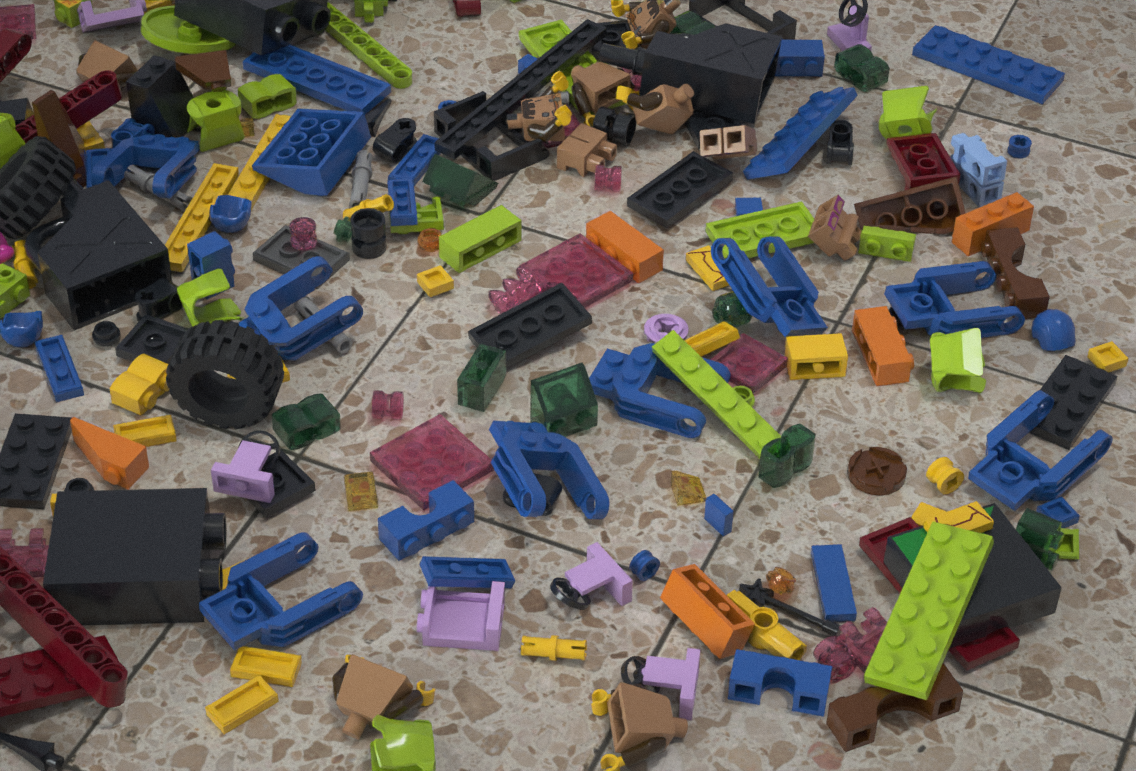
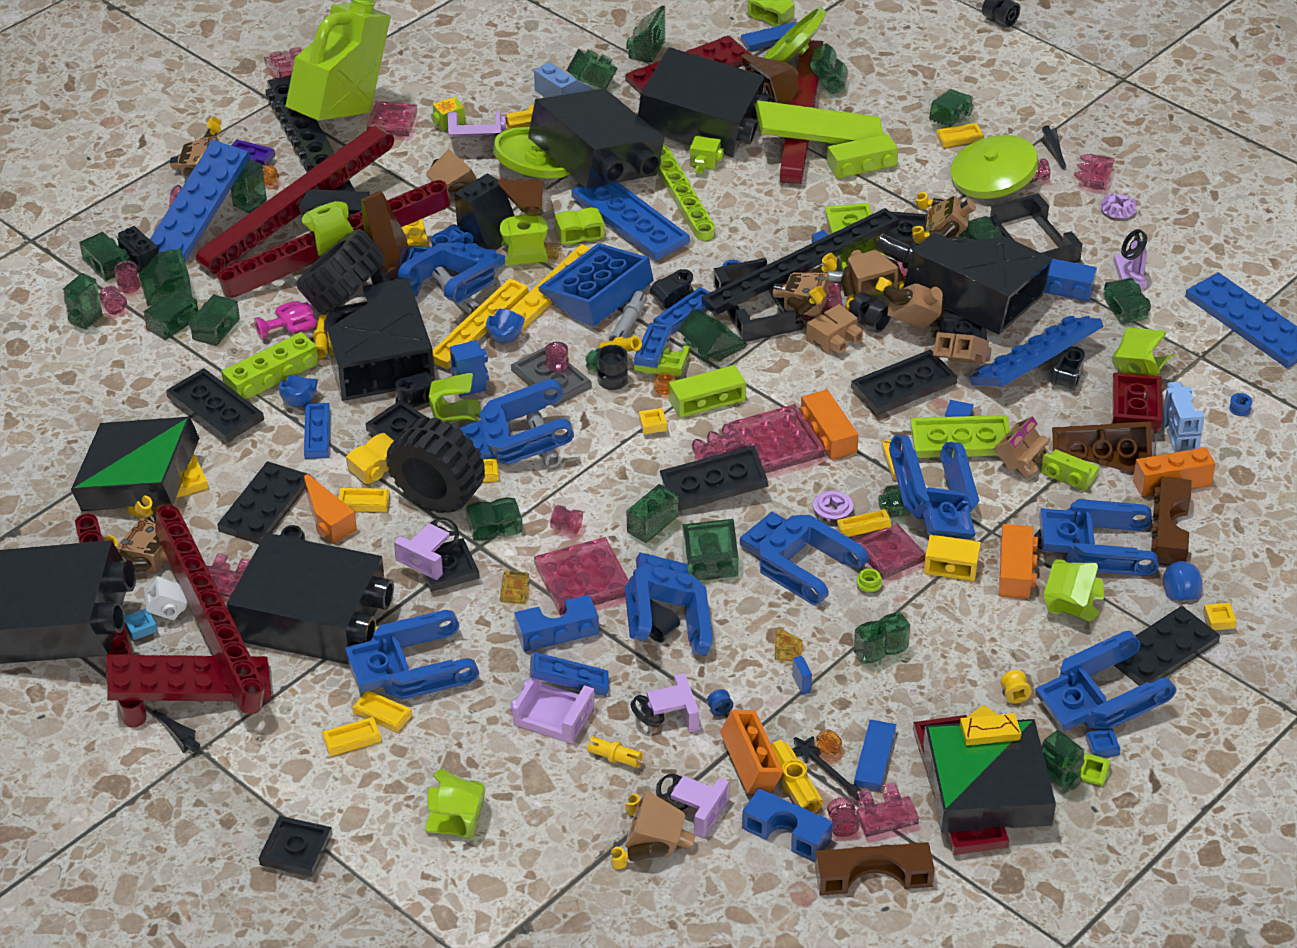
camera: 20 degrees right, 0 degrees up
(106, 333) = (364, 409): black plate -> none
(370, 689) = (456, 752): medium nougat torso -> none
(375, 117) = (662, 265): black piece -> none
(608, 178) = (843, 359): clear pink wheel -> none
(714, 392) = (843, 567): lime plate -> none
(877, 471) = (960, 669): reddish brown tile -> none
(929, 610) = (929, 794): lime plate -> none

